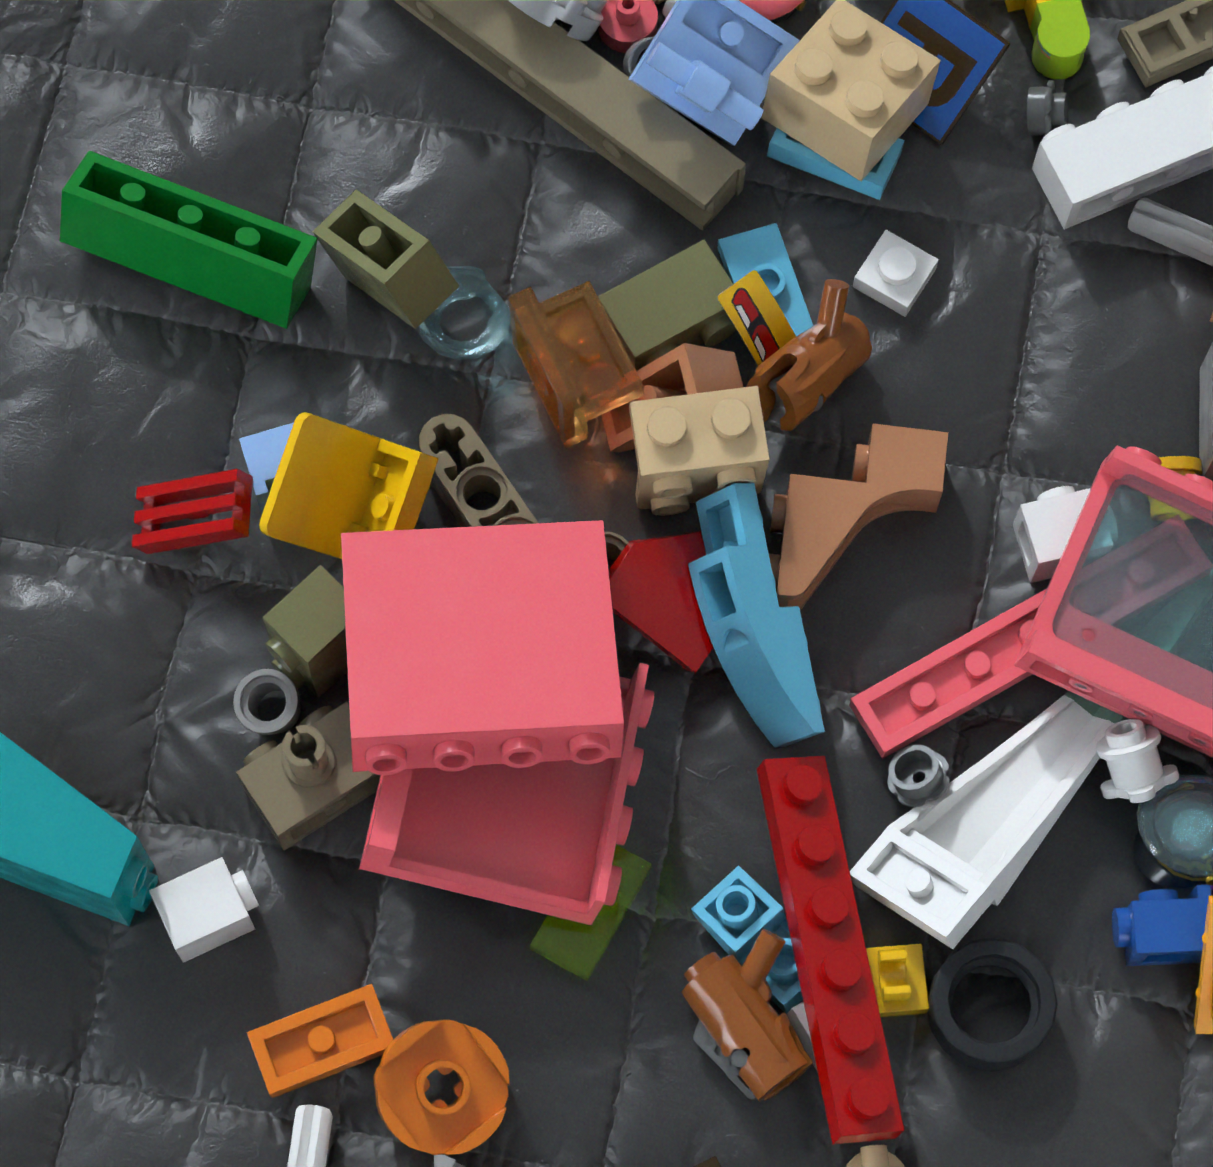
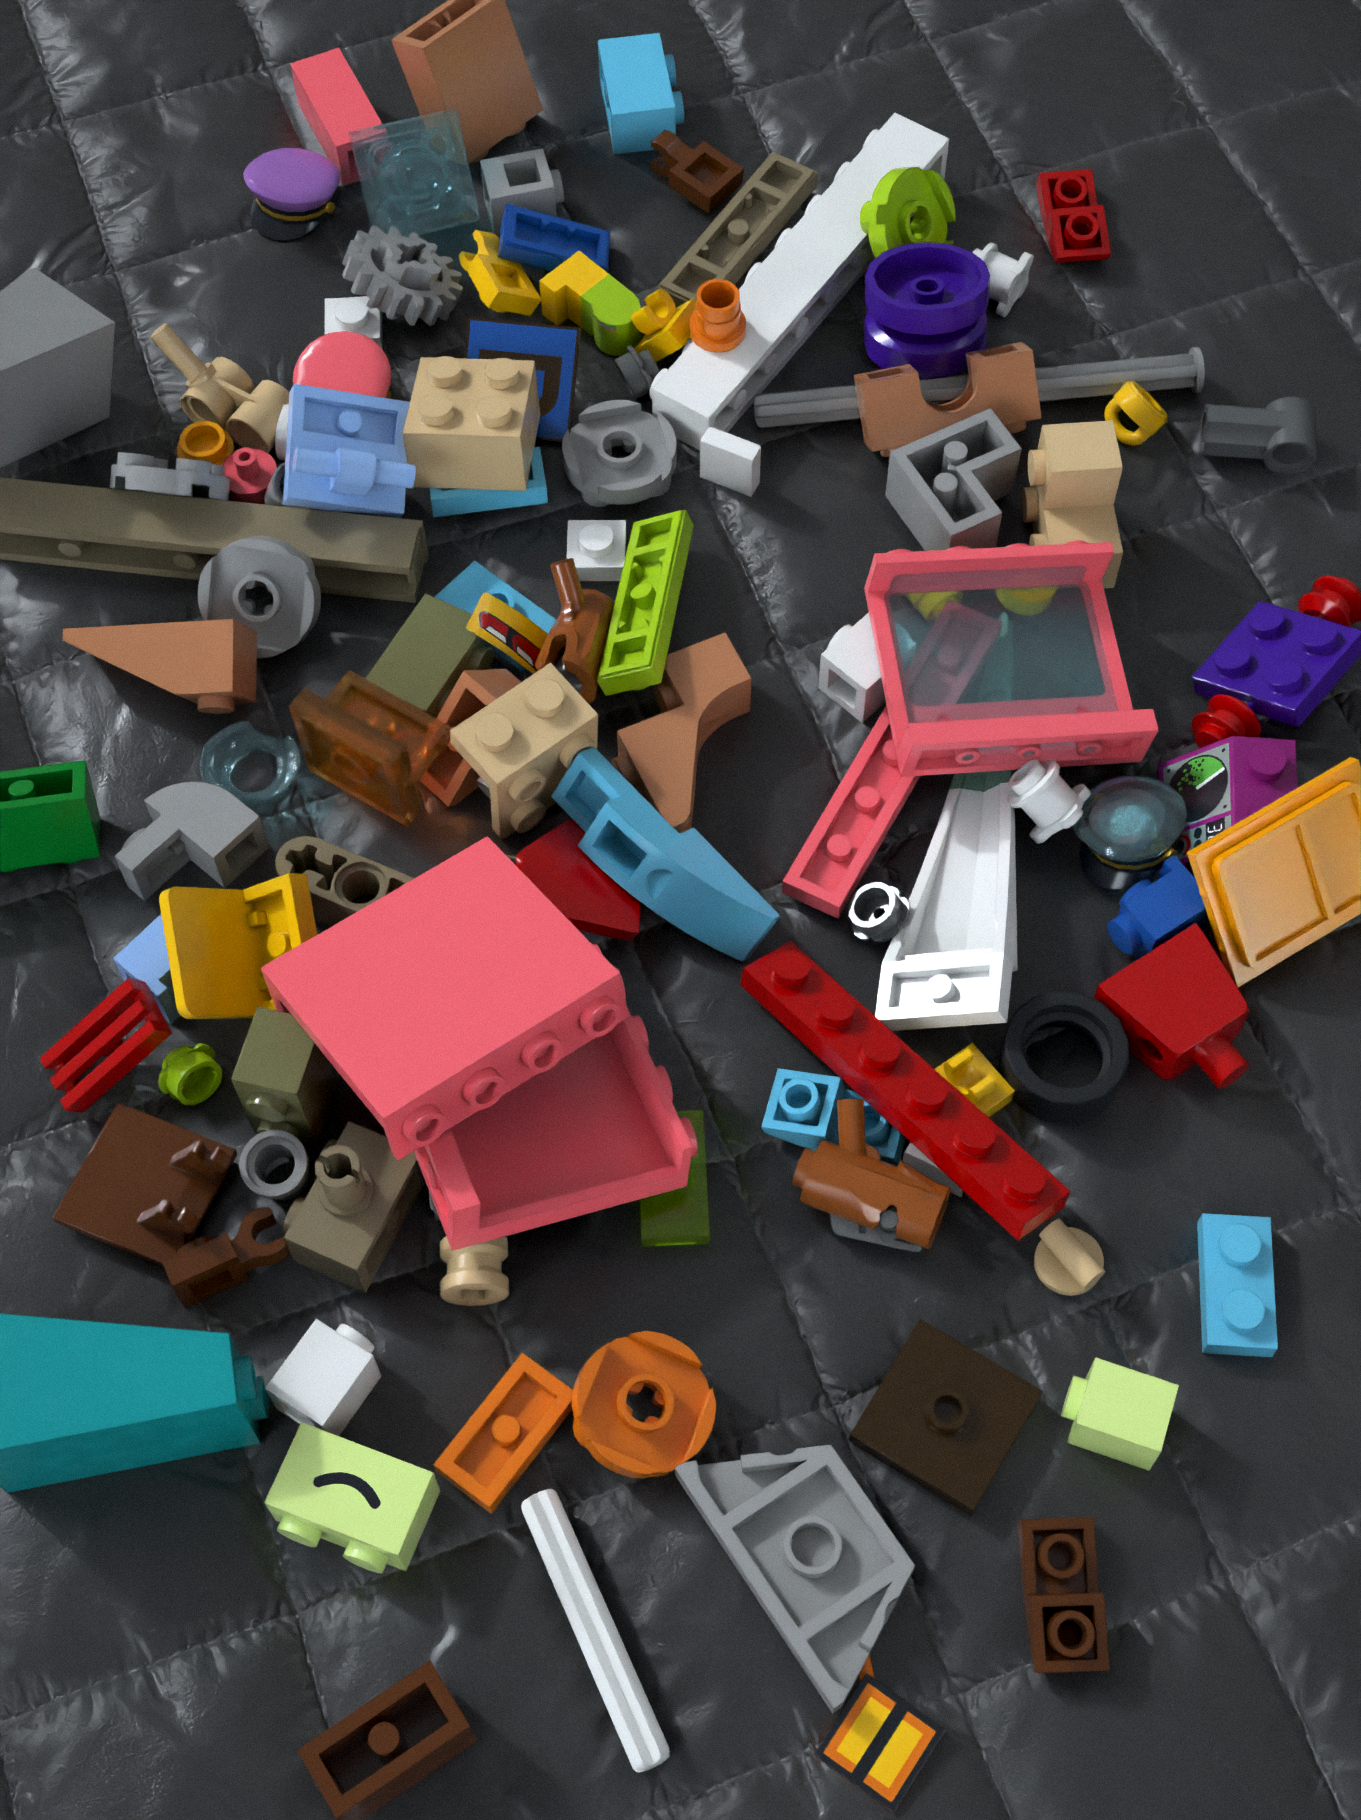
camera: 30 degrees left, 10 degrees down
(159, 652) = (145, 1185): none -> reddish brown plate
(168, 1019) = (351, 1499): none -> yellowish green brick
(169, 755) = (216, 1264): none -> reddish brown plate
(249, 575) = (190, 1074): none -> lime plate
(375, 894) = (474, 1273): none -> tan wheel
(376, 344) = (196, 825): none -> light grey brick
(386, 258) = (157, 744): olive brick -> none
(454, 182) = (196, 660): none -> nougat slope
(591, 150) = (286, 575): none -> light grey plate
(898, 359) = (646, 603): none -> lime plate
(983, 218) = (619, 480): none -> light grey plate
(1072, 253) = (730, 461): none -> white tile
(1104, 83) = (664, 324): none -> yellow tile
(1121, 1024) = (1180, 1009): none -> red torso
(1139, 121) = (717, 317): none -> orange piece

